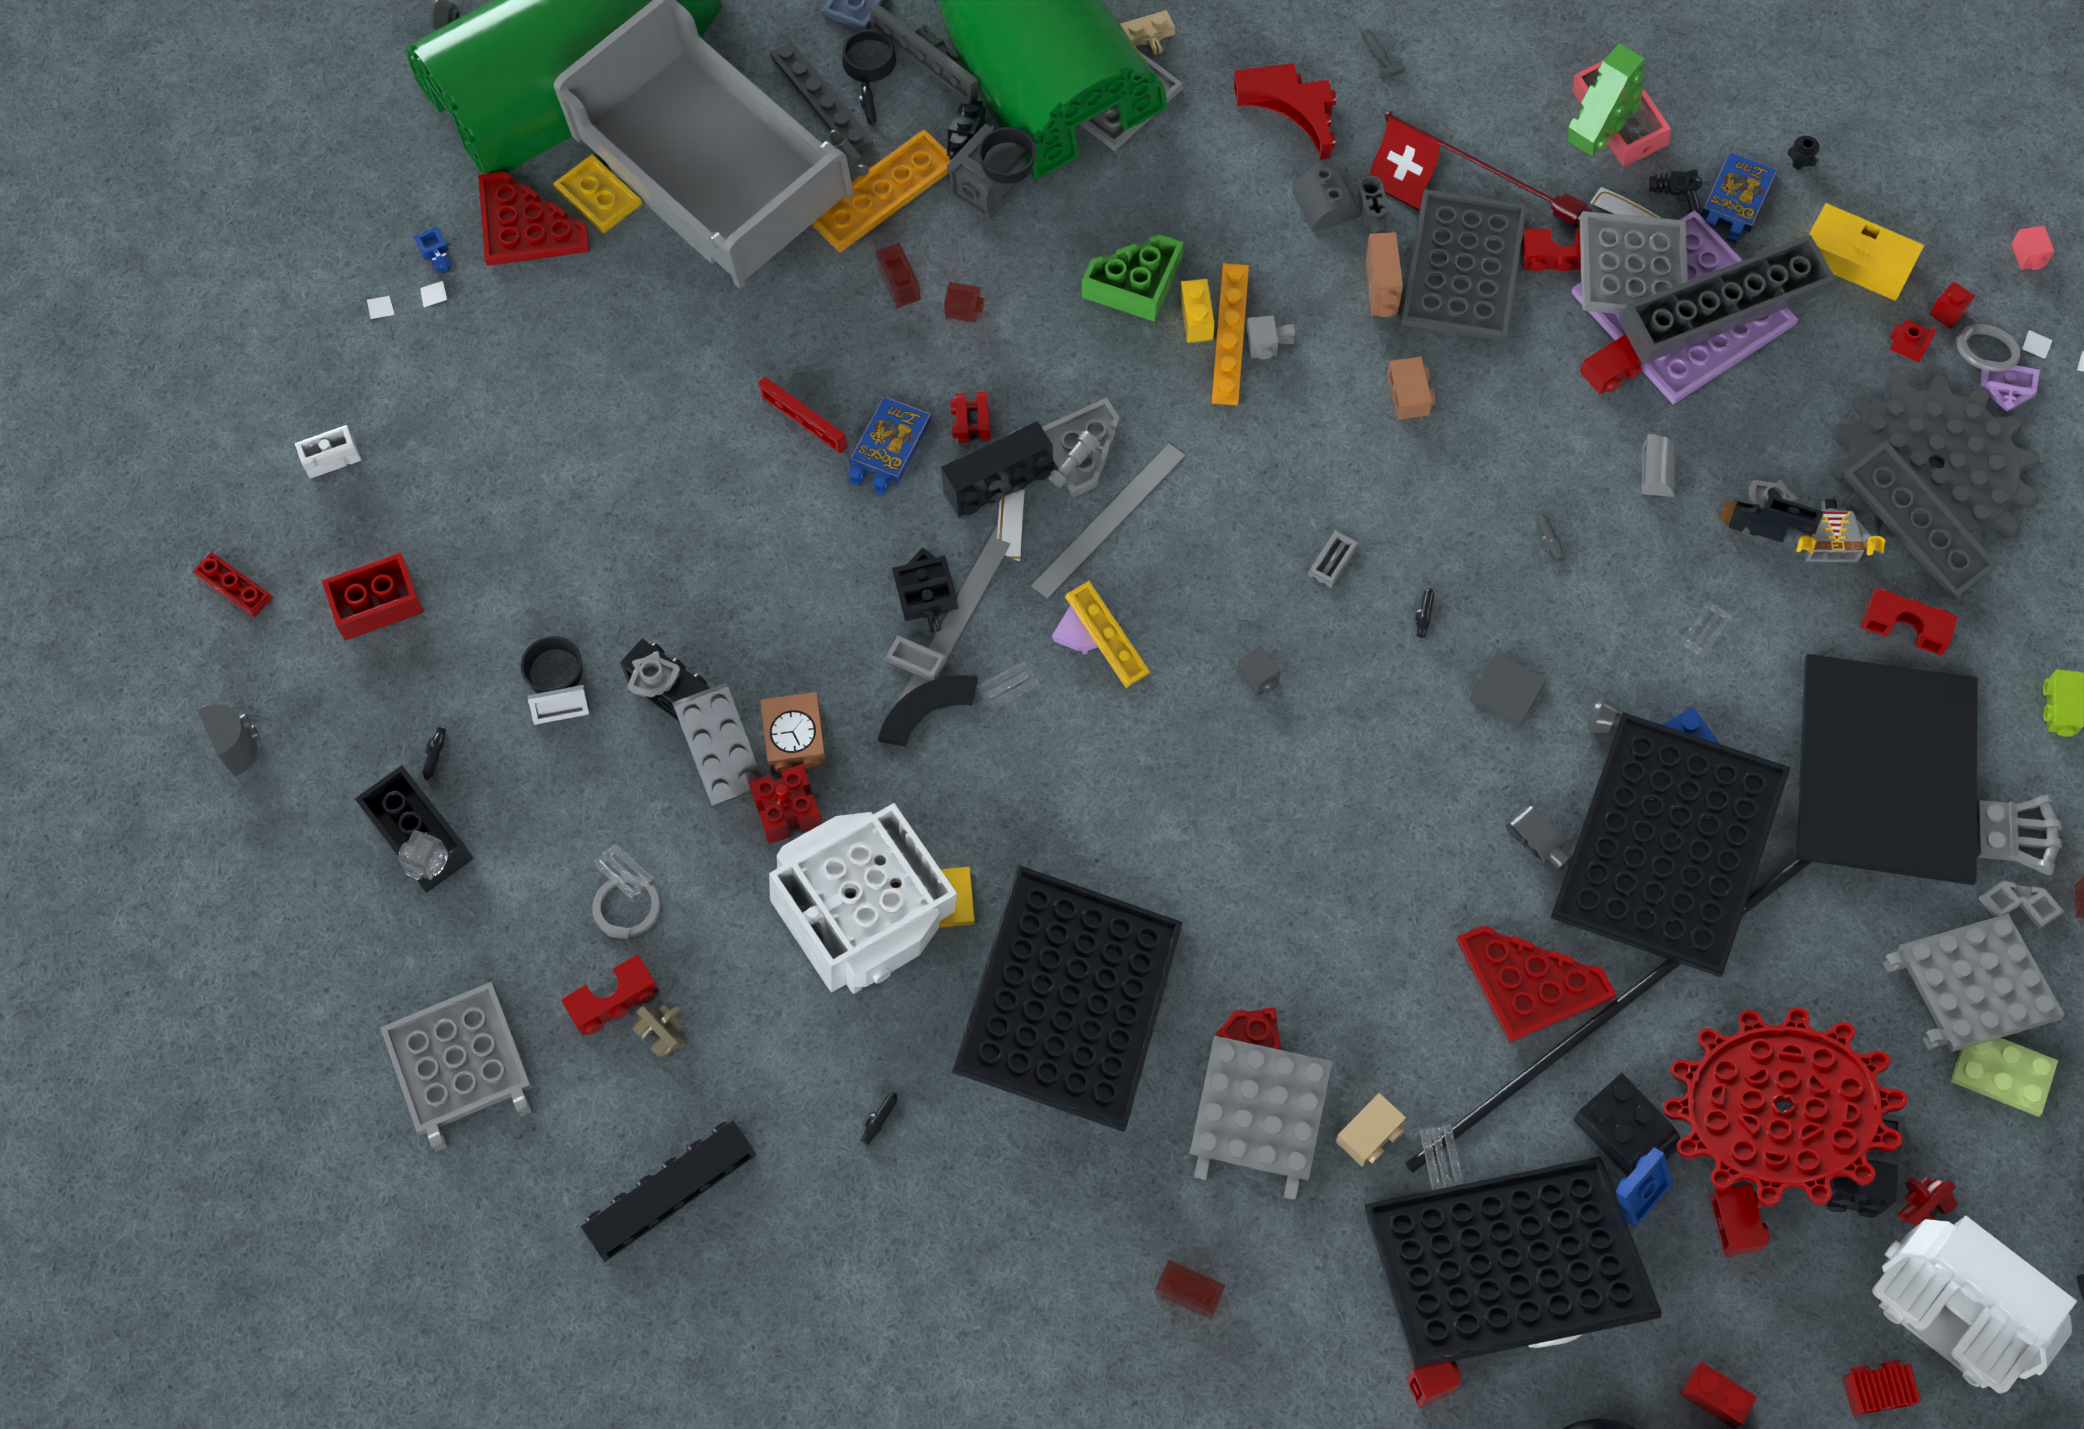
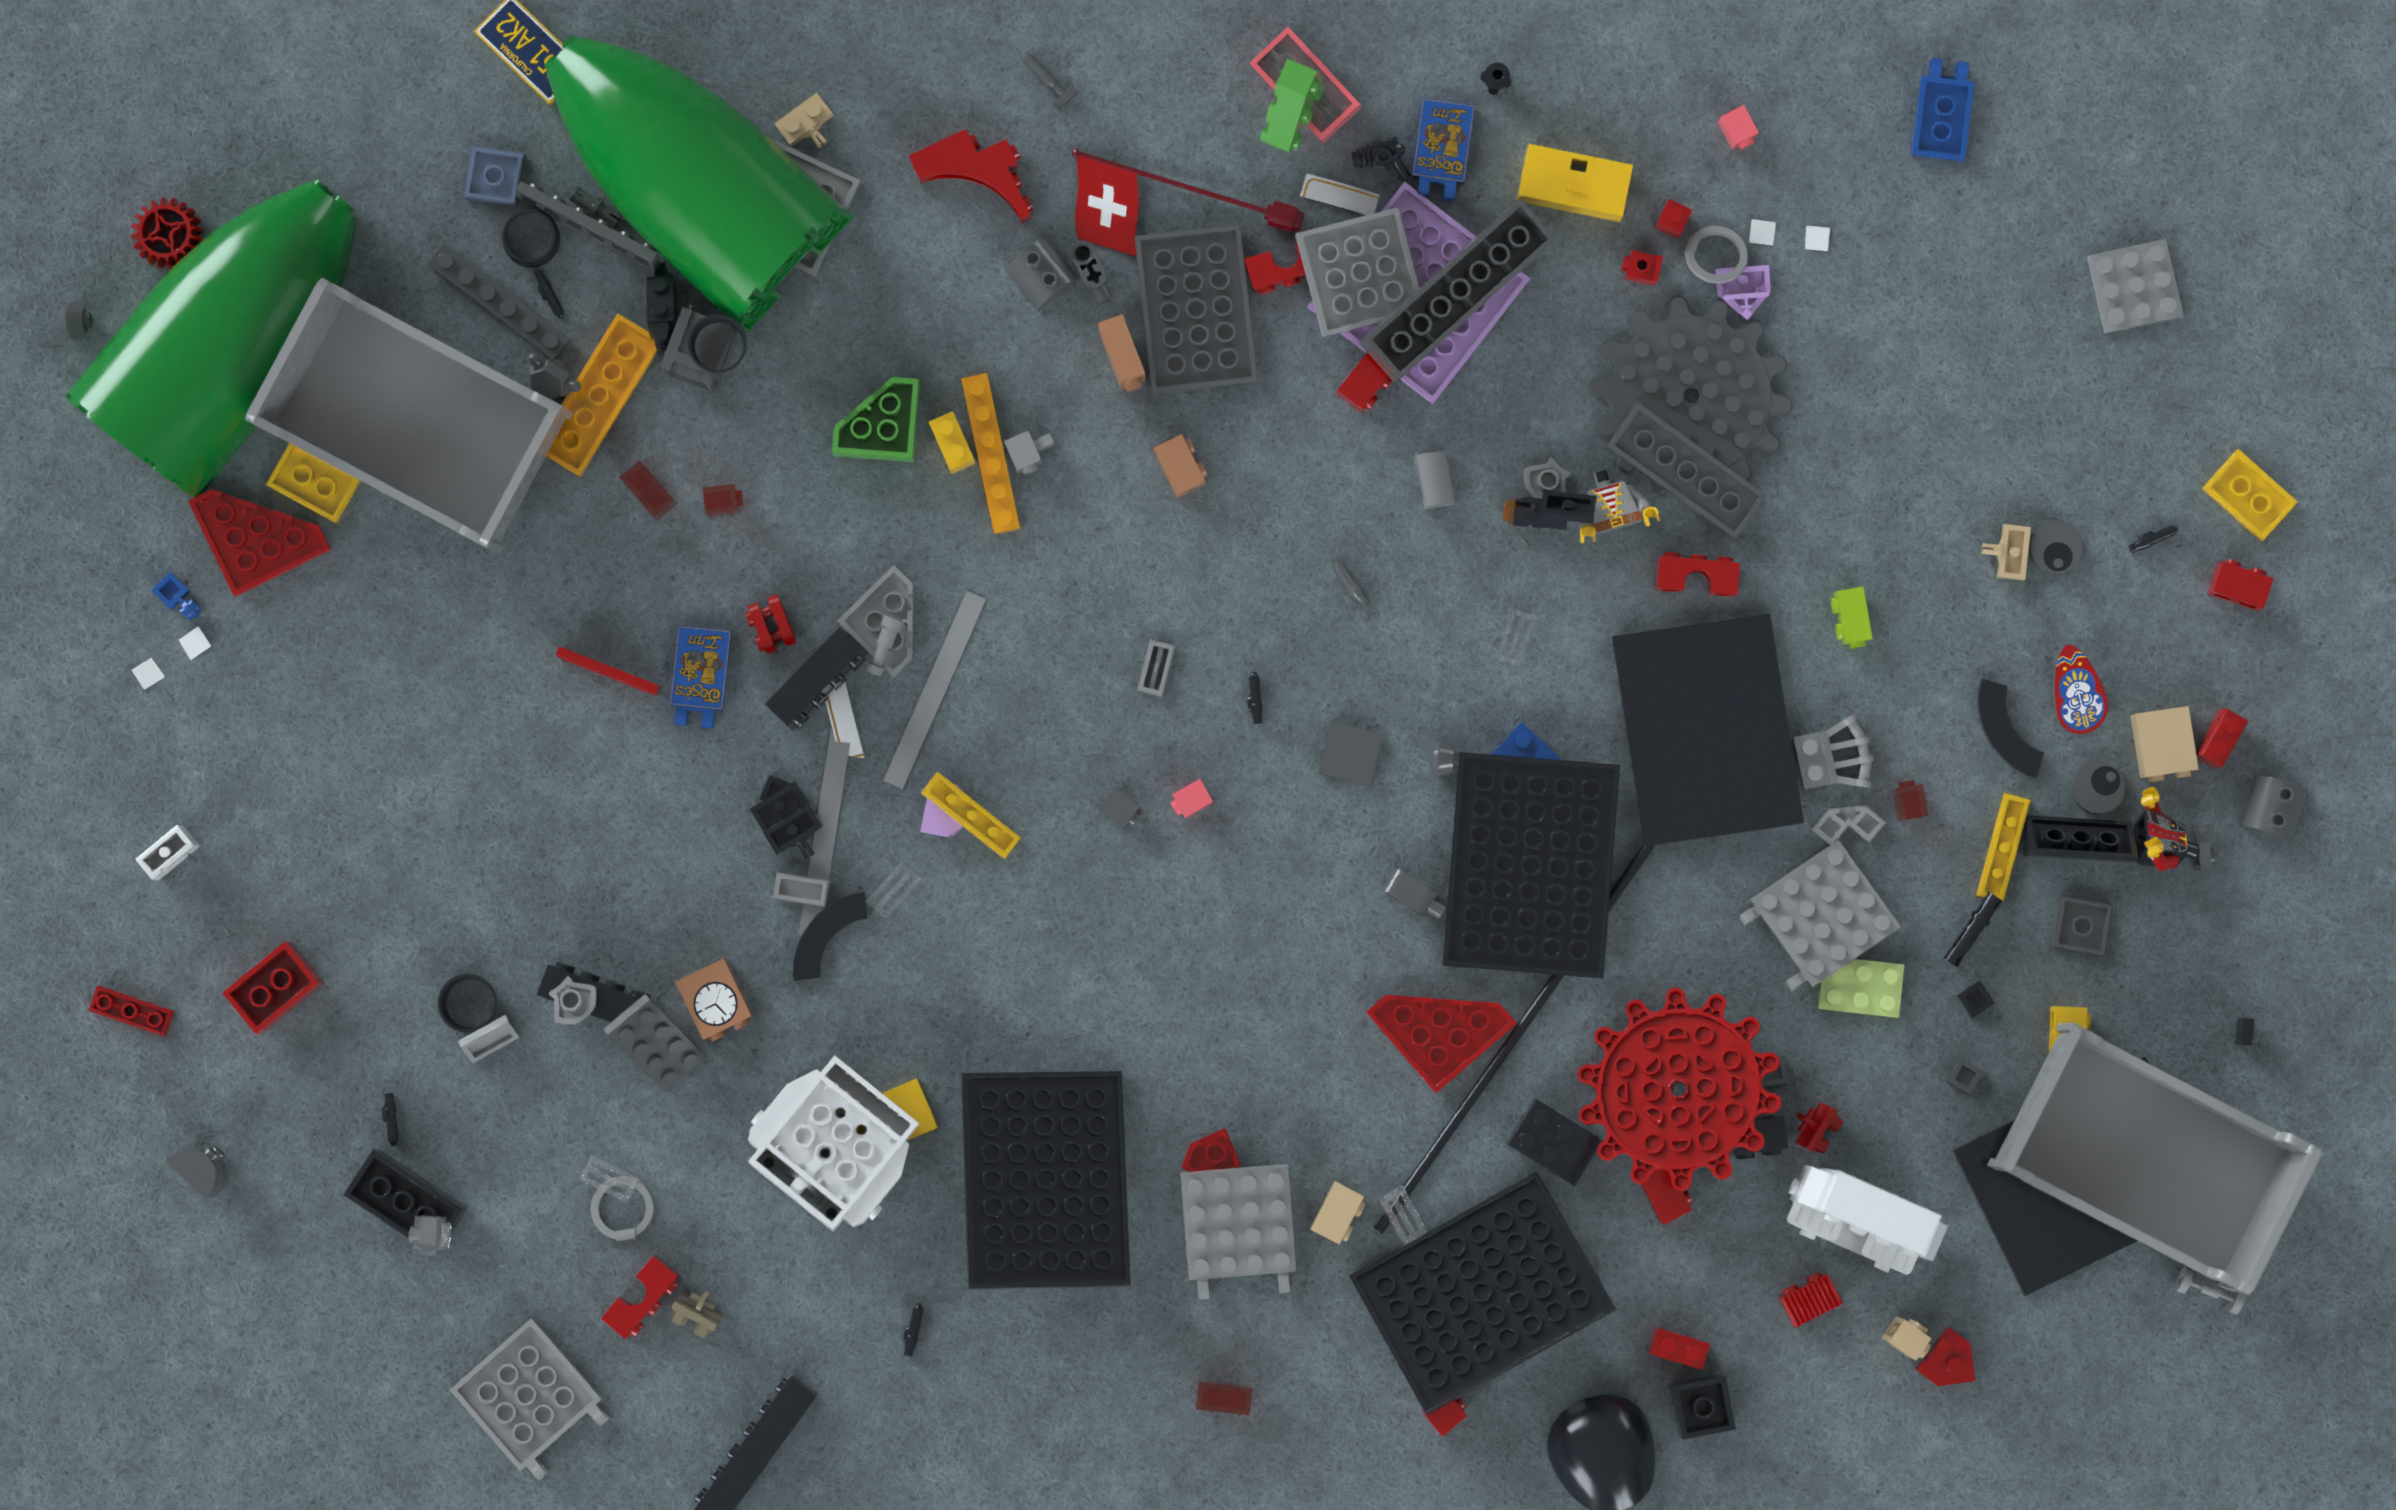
camera: 25 degrees left, 20 degrees up
(785, 804) = (732, 1072): red brick -> none
(1334, 683) = (1191, 799): none -> coral brick
(1644, 1187) = (1579, 1192): blue plate -> none

